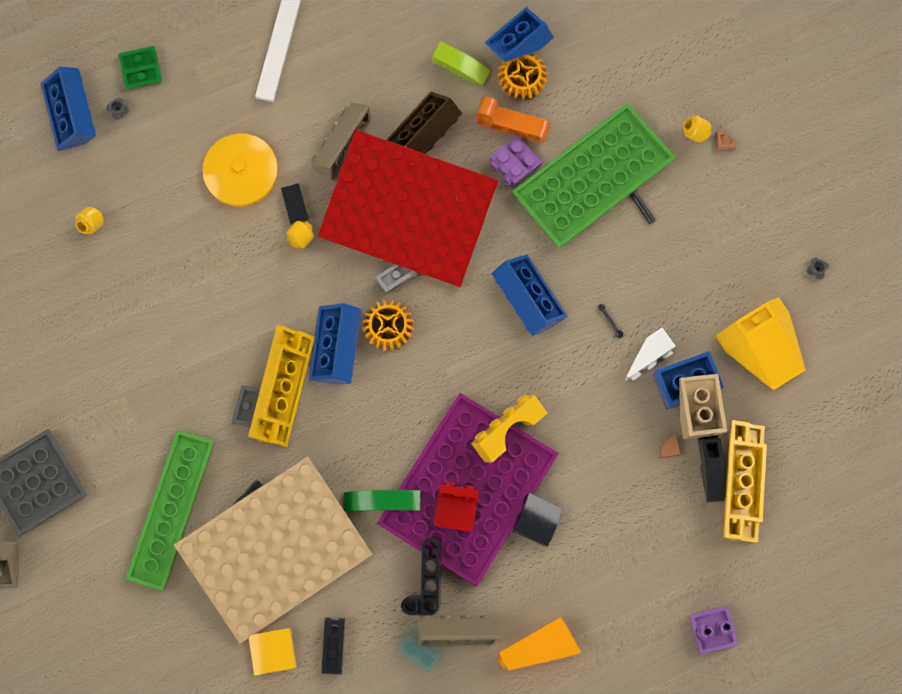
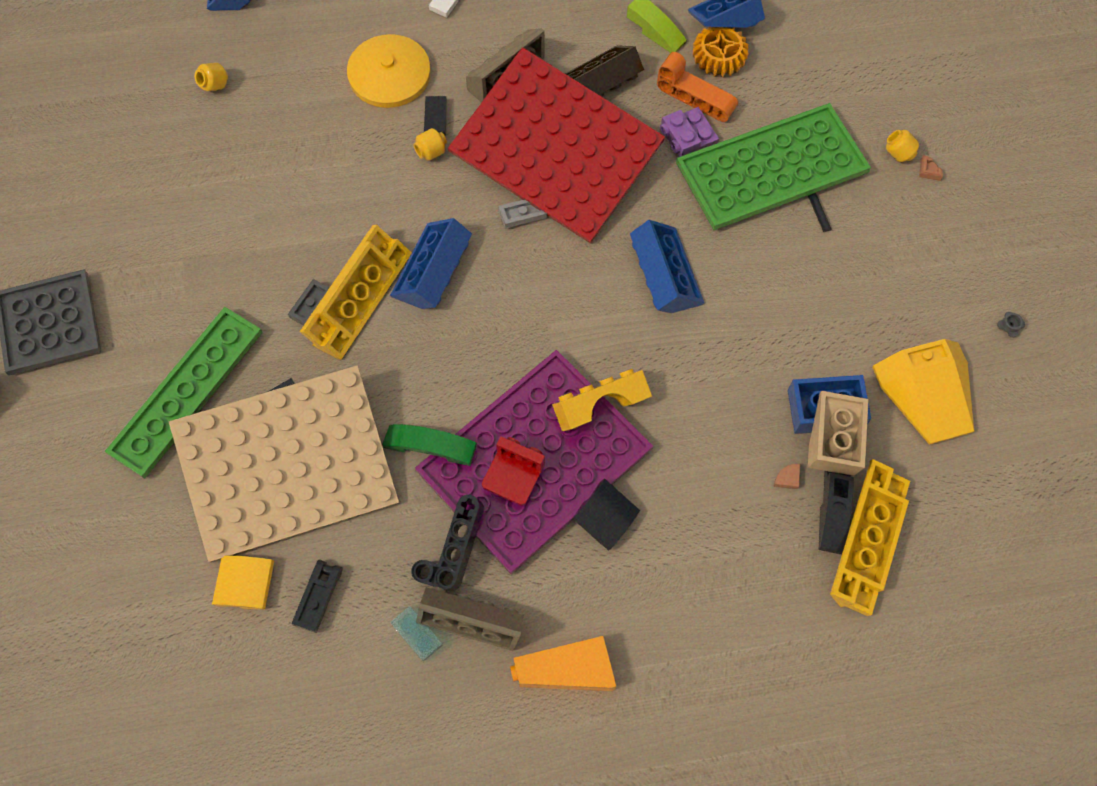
camera: 15 degrees right, 10 degrees down
(382, 331) = (491, 269): light orange gear -> none
(619, 334) = (759, 337): black hinge -> none
(654, 348) = (797, 360): white slope -> none
(713, 630) = (790, 708): medium lavender plate -> none

